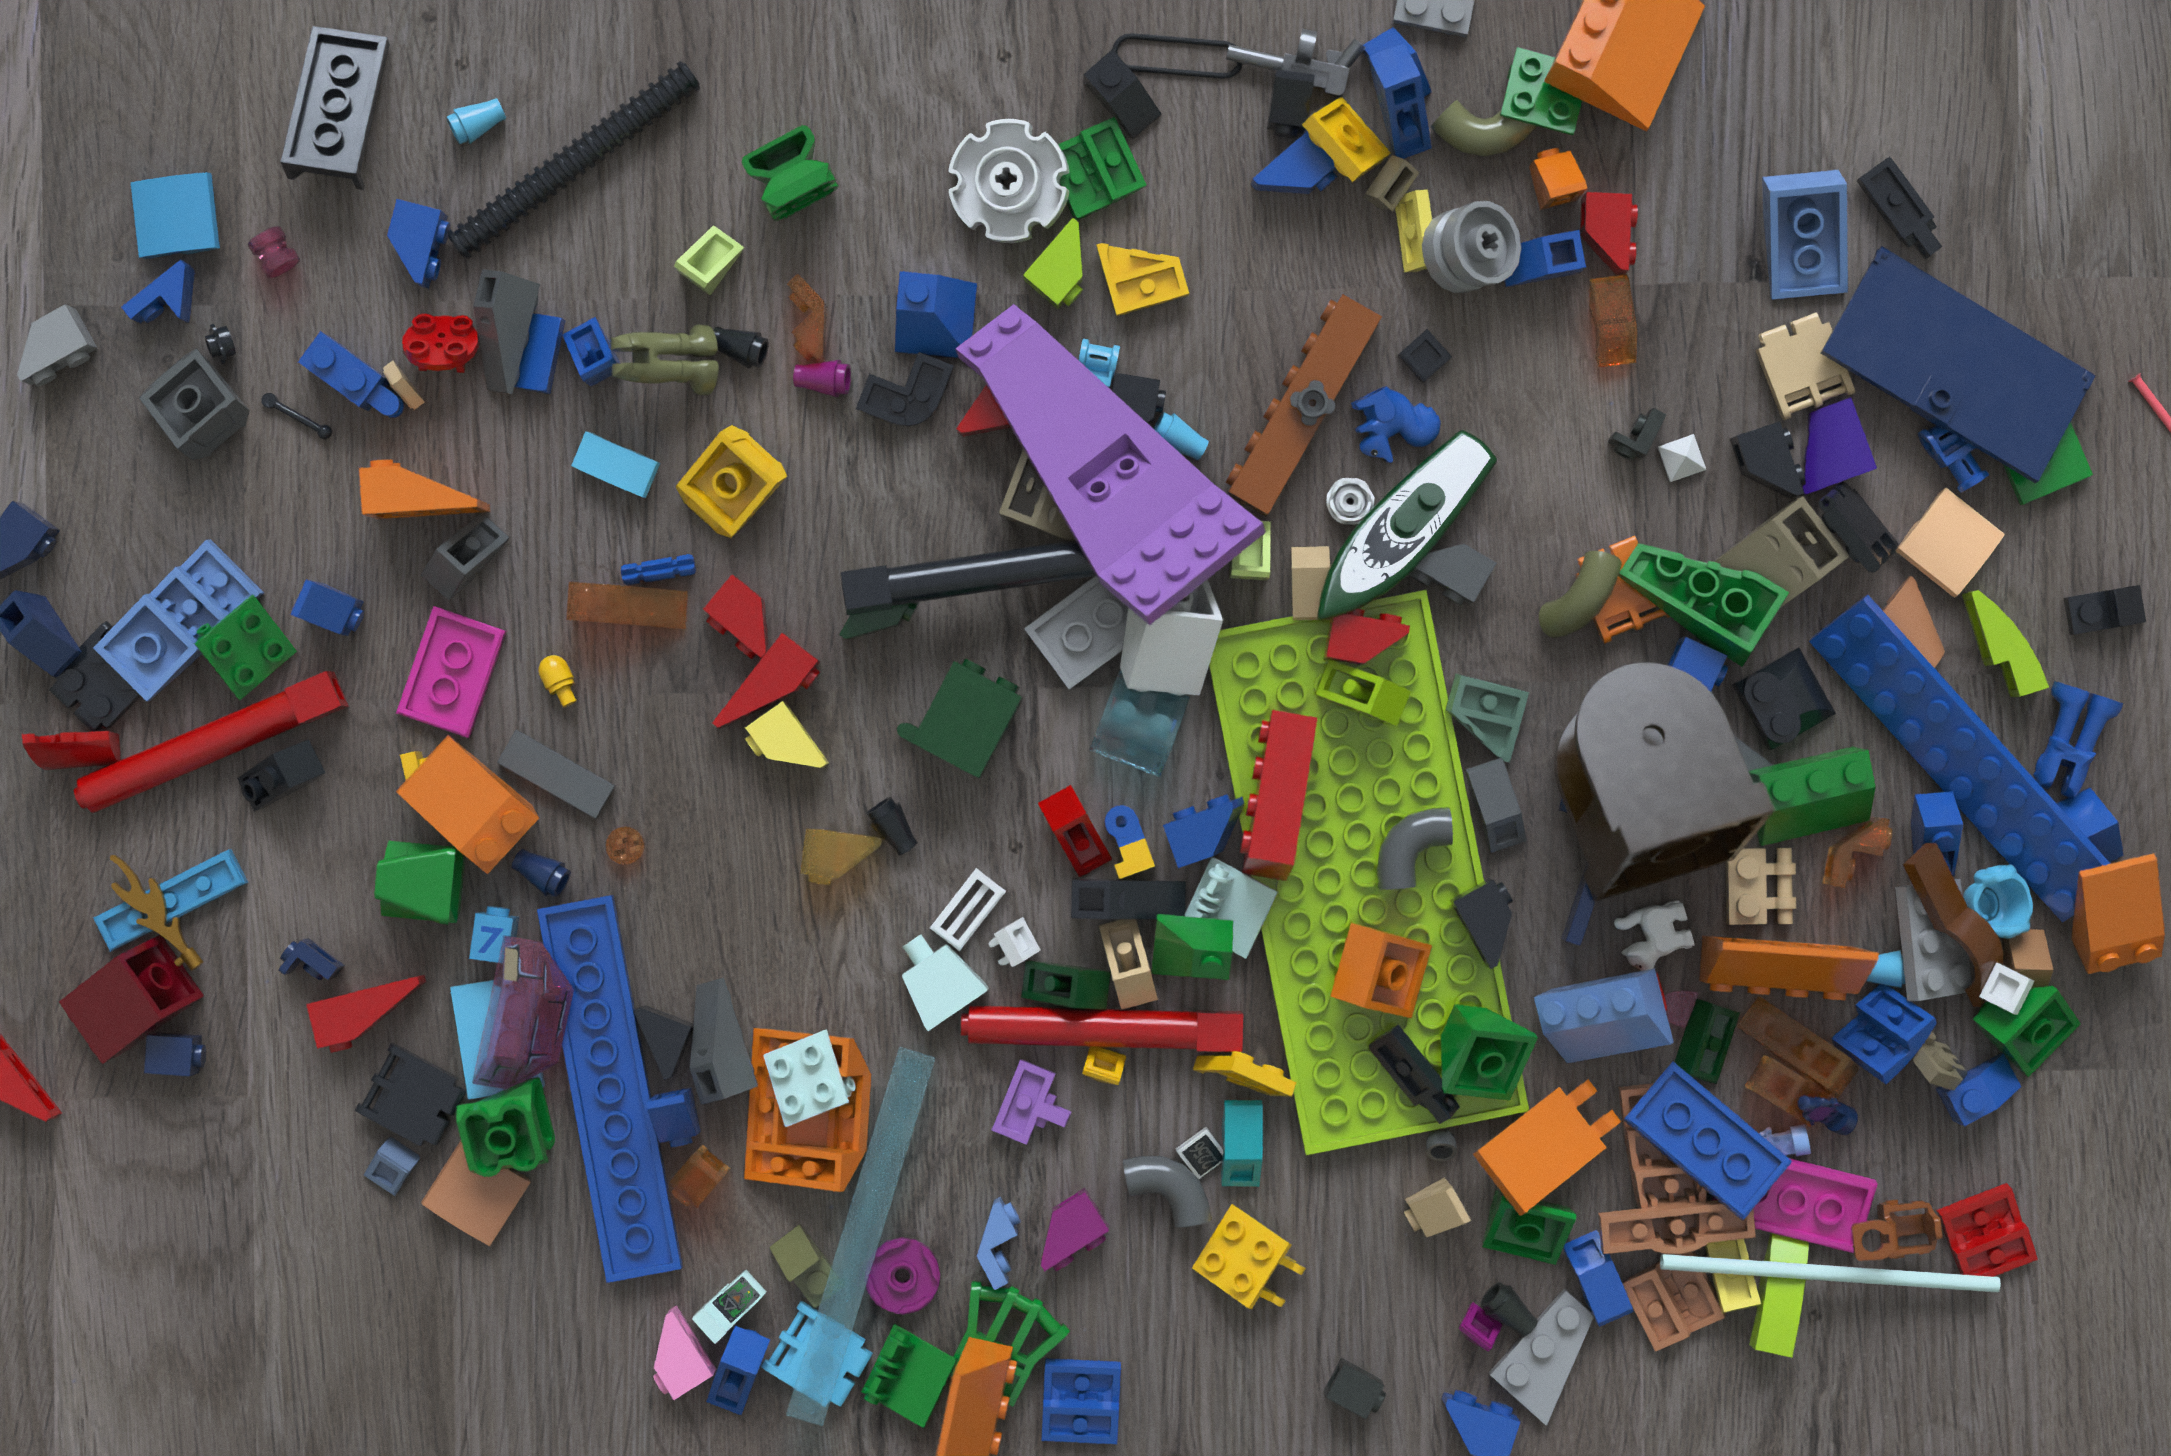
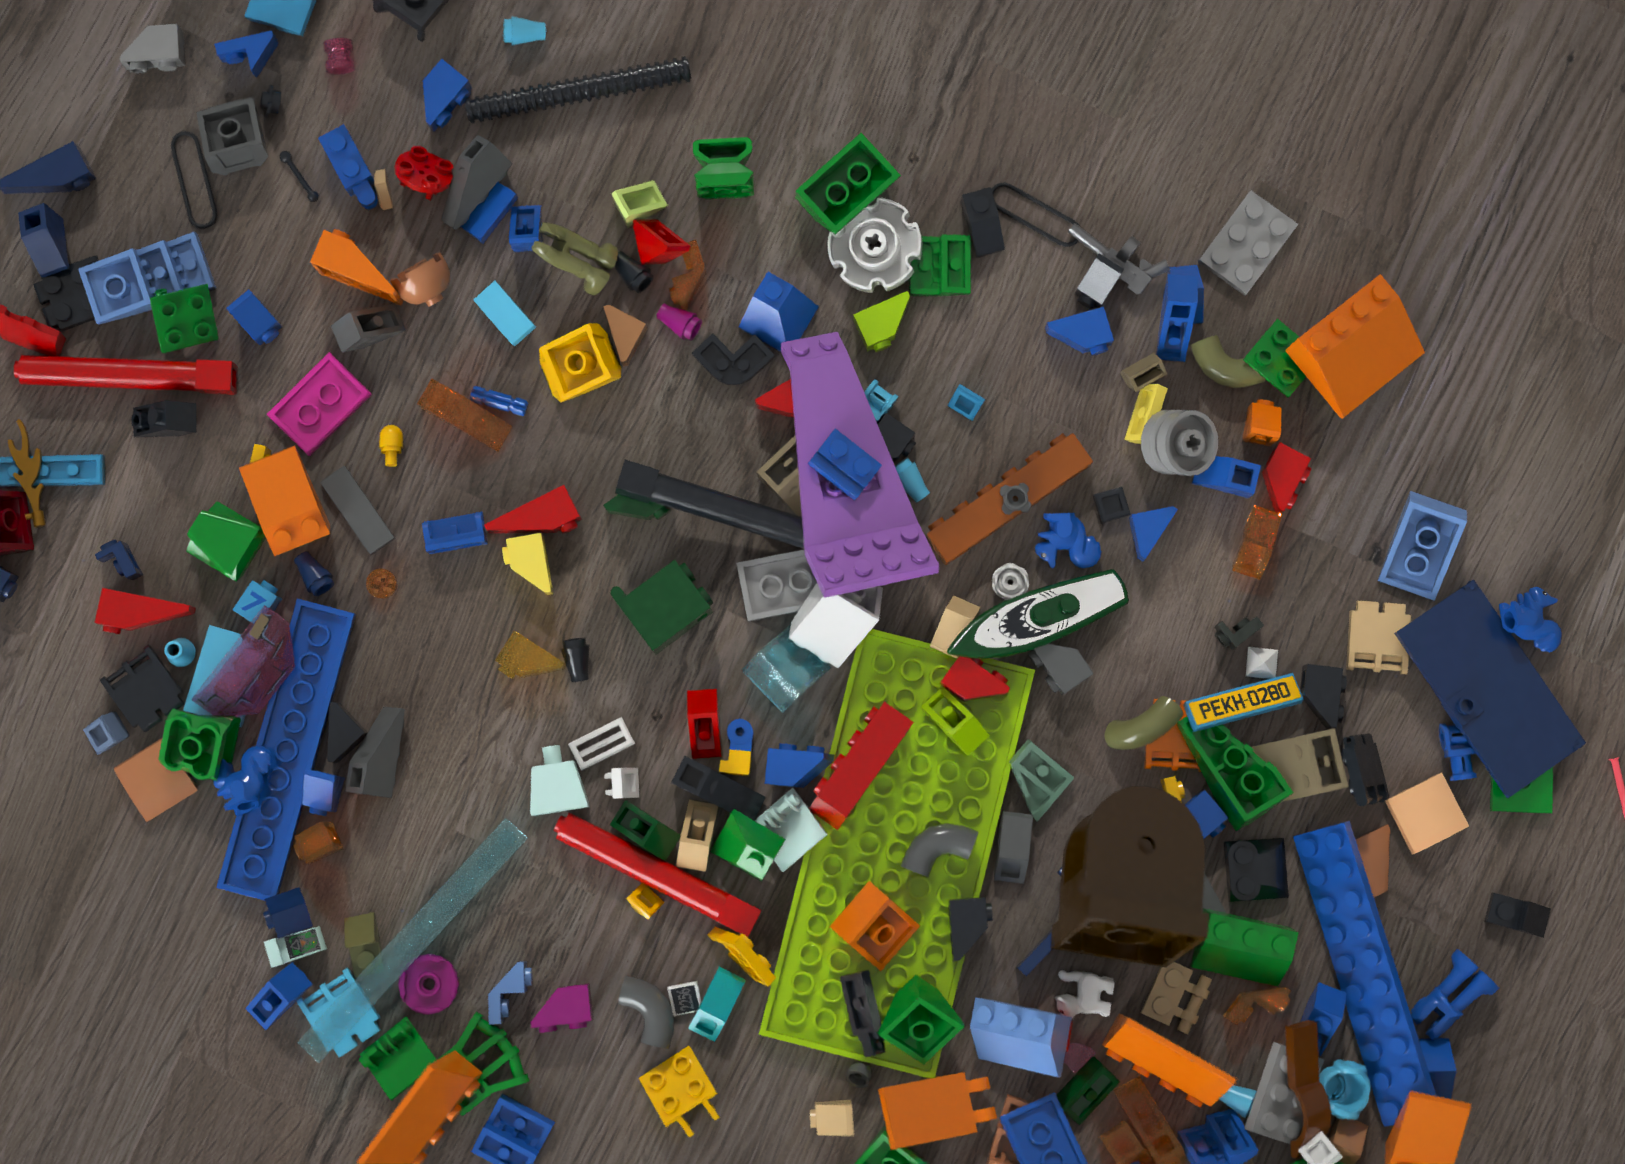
camera: 30 degrees right, 5 degrees down
(159, 484) = (186, 201): none -> black piece
(439, 1030) = (185, 655): none -> medium azure cone
(503, 472) = (423, 281): none -> nougat cylinder
(584, 1150) = (246, 784): none -> blue animal
(680, 1357) = (242, 966): bright pink slope -> none
(681, 747) = (454, 533): none -> blue hinge
(702, 1273) = (287, 913): none -> dark blue brick
(742, 614) = (542, 458): red slope -> none
(753, 296) = (657, 242): none -> red slope
(768, 420) = (626, 332): none -> medium nougat slope
(807, 1078) = (429, 808): light aqua hinge -> none
(815, 1151) = (418, 831): orange slope -> none
(943, 125) = (846, 184): none -> green slope
(1029, 1103) = (578, 903): medium lavender hinge -> none
(1098, 457) = (844, 464): none -> blue plate
(1140, 278) = (935, 356): yellow wing -> none
(1201, 315) = (966, 402): none -> dark azure slope
(1254, 560) = (922, 589): yellowish green slope -> none
(1346, 139) = (1126, 326): yellow plate -> none
(1481, 364) = (1148, 528): none -> blue slope
(1647, 651) = (1173, 787): none -> yellow plate
(1682, 514) = (1243, 702): none -> tile
(1835, 447) = (1375, 706): dark purple slope -> none
(1901, 206) = (1500, 557): black hinge -> none
(1965, 266) = (1527, 620): none -> blue animal
(2004, 644) = (1433, 904): lime slope -> none

